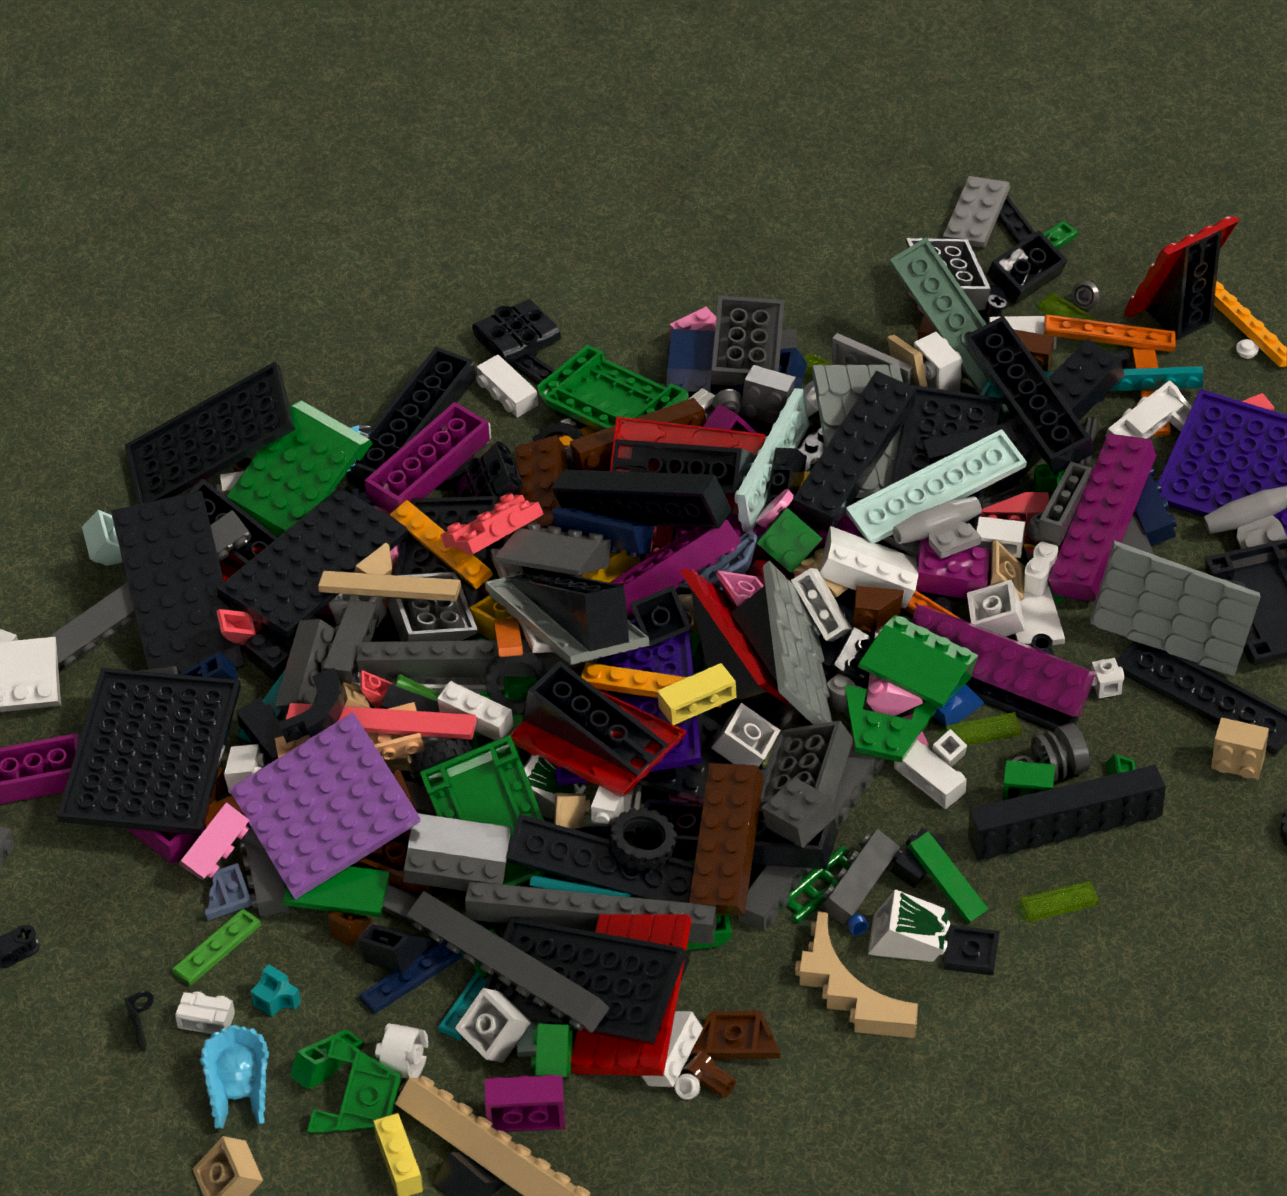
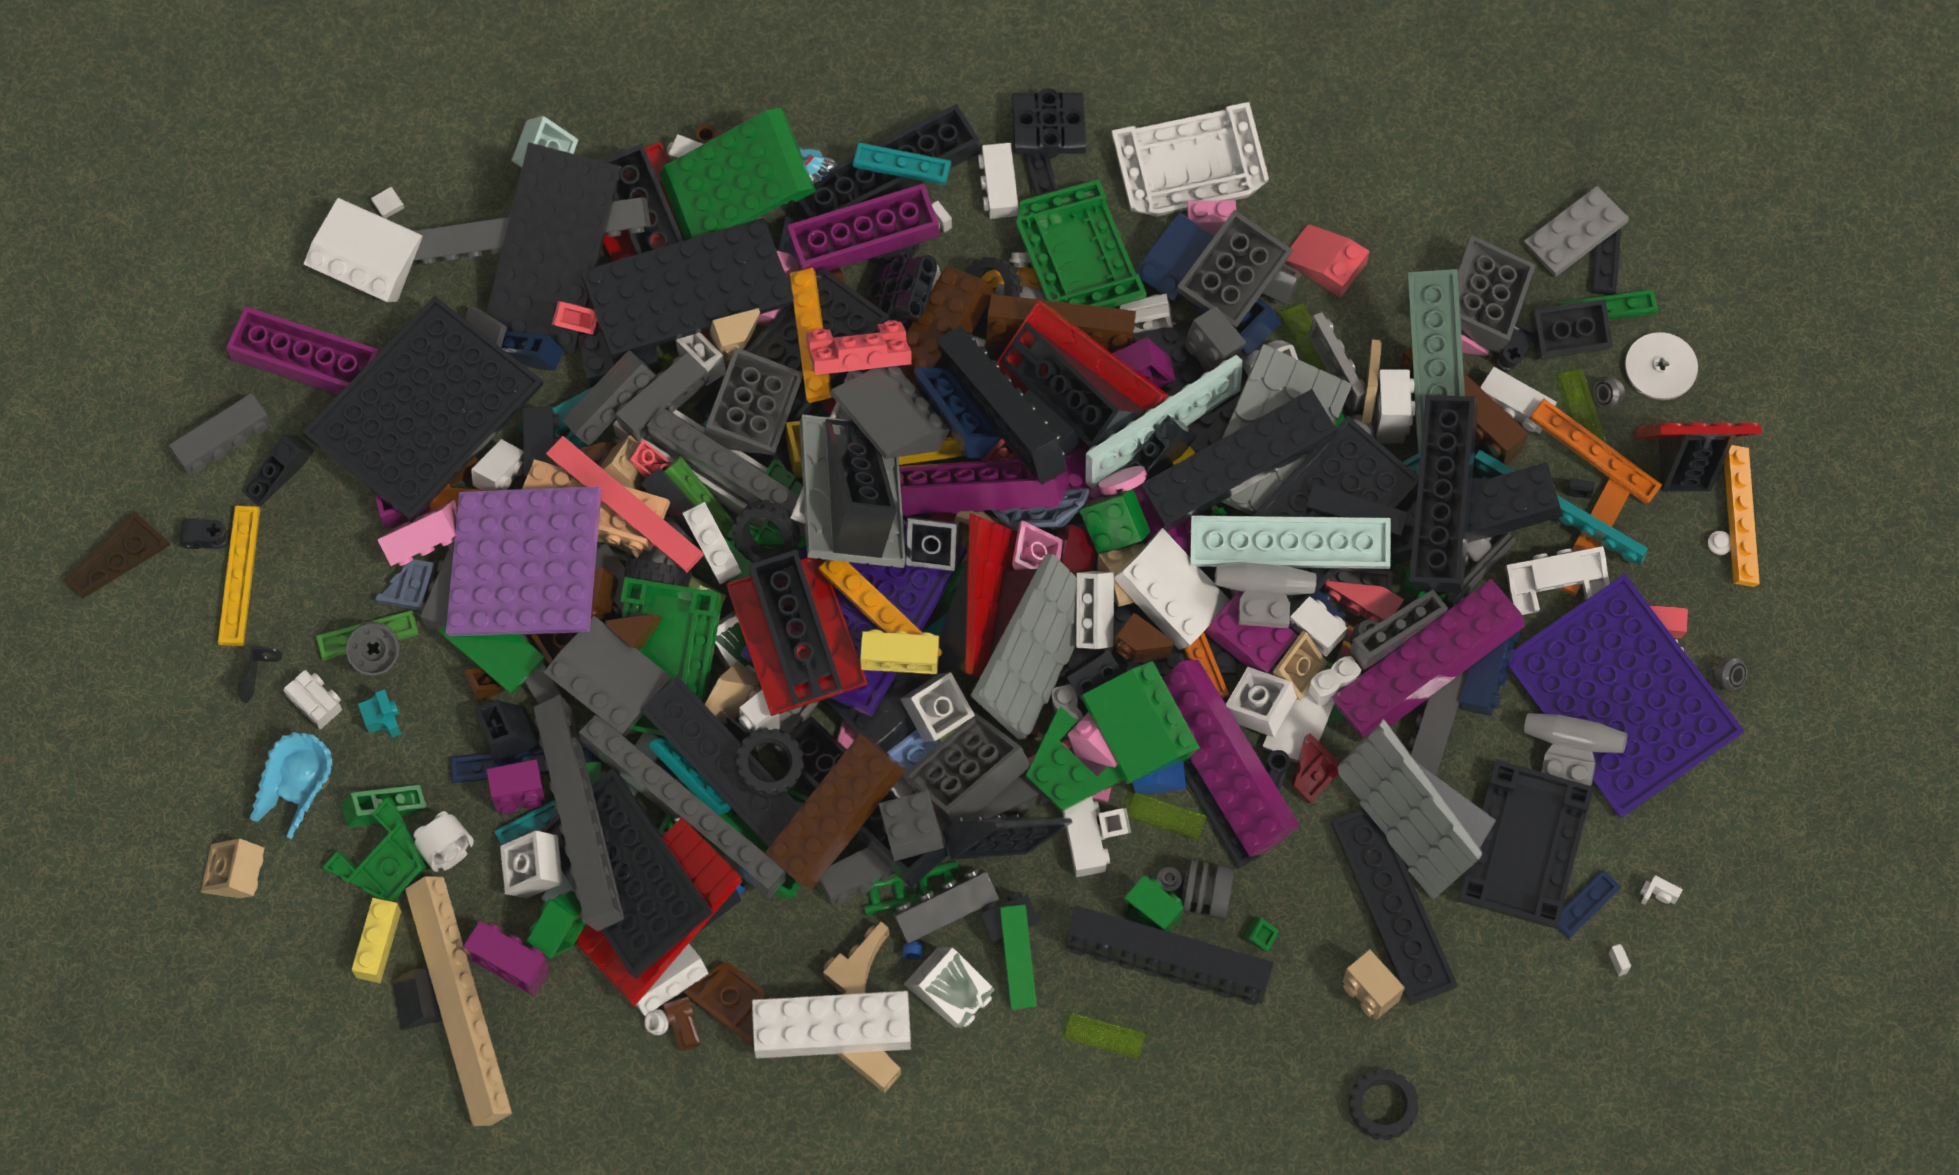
camera: 30 degrees right, 20 degrees up
(46, 867) = (279, 466): none -> black slope
(69, 963) = (239, 576): none -> yellow tile
(210, 436) = (685, 94): black plate -> none
(242, 933) = (373, 663): none -> dark grey wheel
(322, 713) = (580, 467): black arch -> none
(389, 586) = (726, 362): tan tile -> none
(423, 402) = (902, 163): none -> teal tile
(436, 978) = (516, 786): none -> magenta brick
(456, 804) = (635, 630): none -> reddish brown slope
(508, 637) = (778, 490): orange tile -> none
(647, 299) = (1190, 161): none -> white slope
(728, 398) = (1173, 328): flat silver cone -> none
(811, 313) = (1328, 258): none -> coral slope
(839, 997) = (831, 1024): none -> white brick
(874, 788) = (1000, 835): none -> black slope
(971, 950) = (993, 1037): black tile -> none
(1072, 637) = (1313, 770): none -> dark red wing
(1108, 678) = (1312, 832): white brick -> none
(1122, 265) = (1648, 378): none -> white piece

